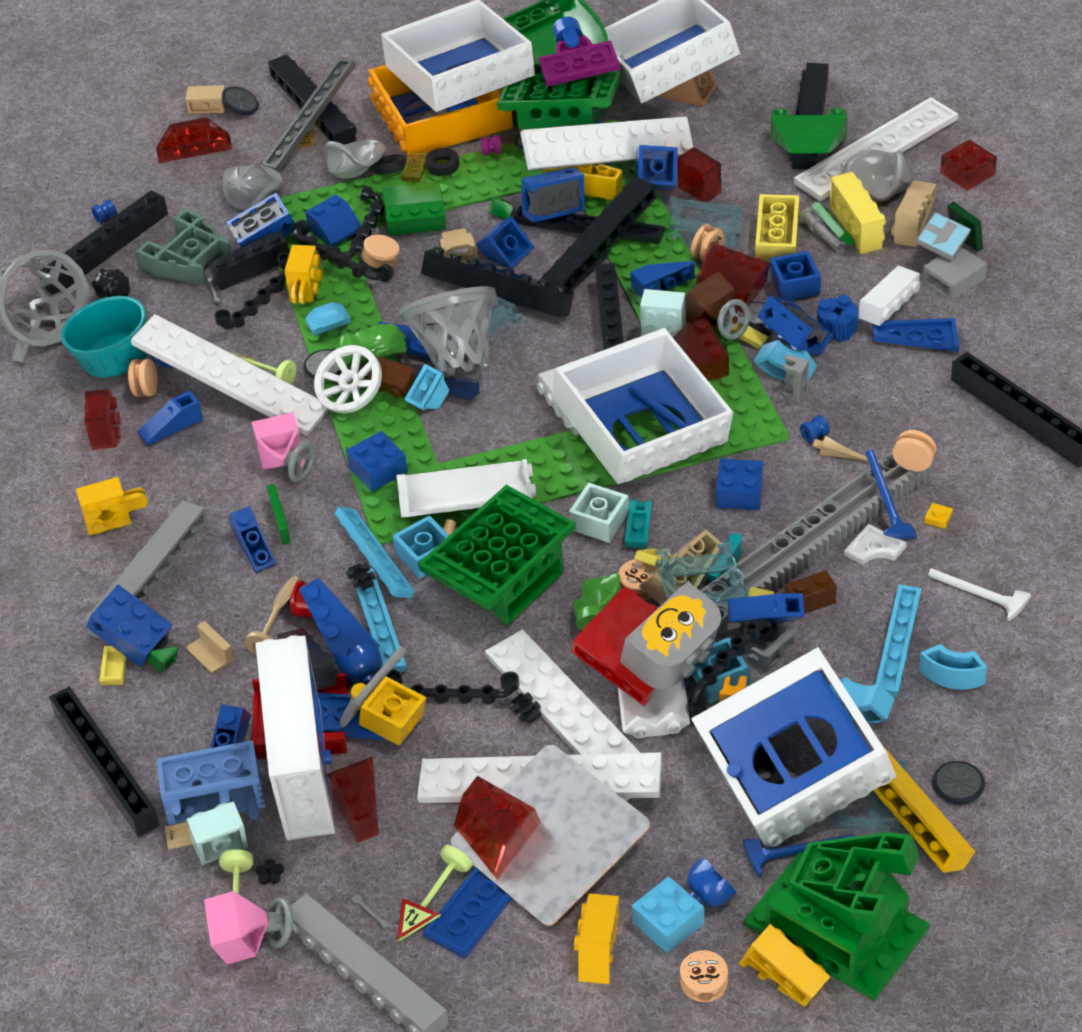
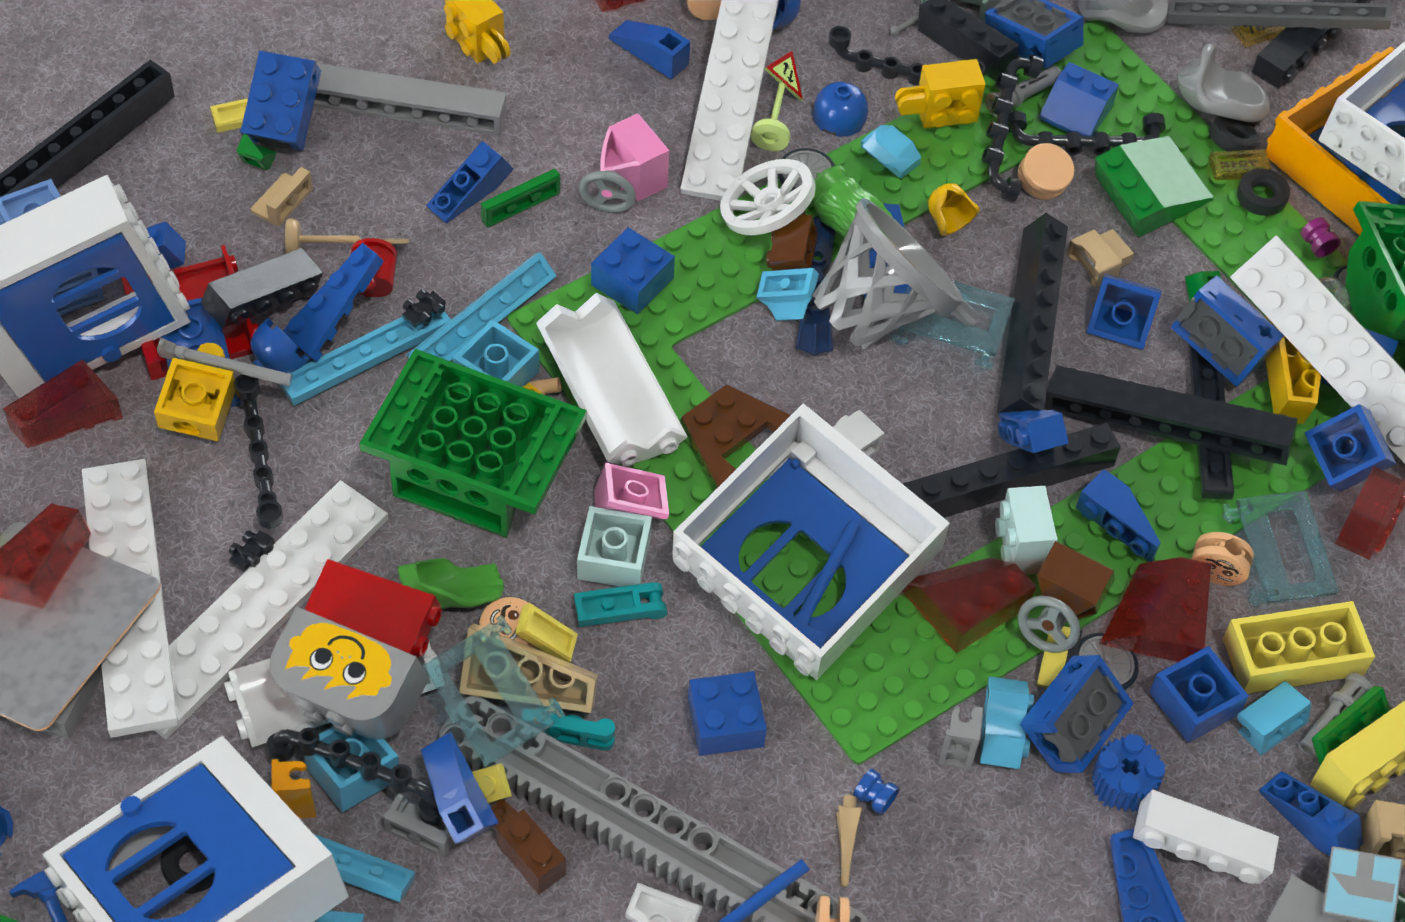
camera: 65 degrees right, 10 degrees up
(276, 338) = (840, 109): none -> blue cylinder
(390, 299) = (951, 208): none -> yellow hair
(519, 441) = (725, 424): none -> reddish brown wing
(563, 492) = (631, 491): none -> bright pink slope
(593, 292) = (1033, 429): none -> blue slope
(819, 251) = (1274, 717): none -> medium azure hinge
(886, 252) = (1314, 814): none -> blue slope

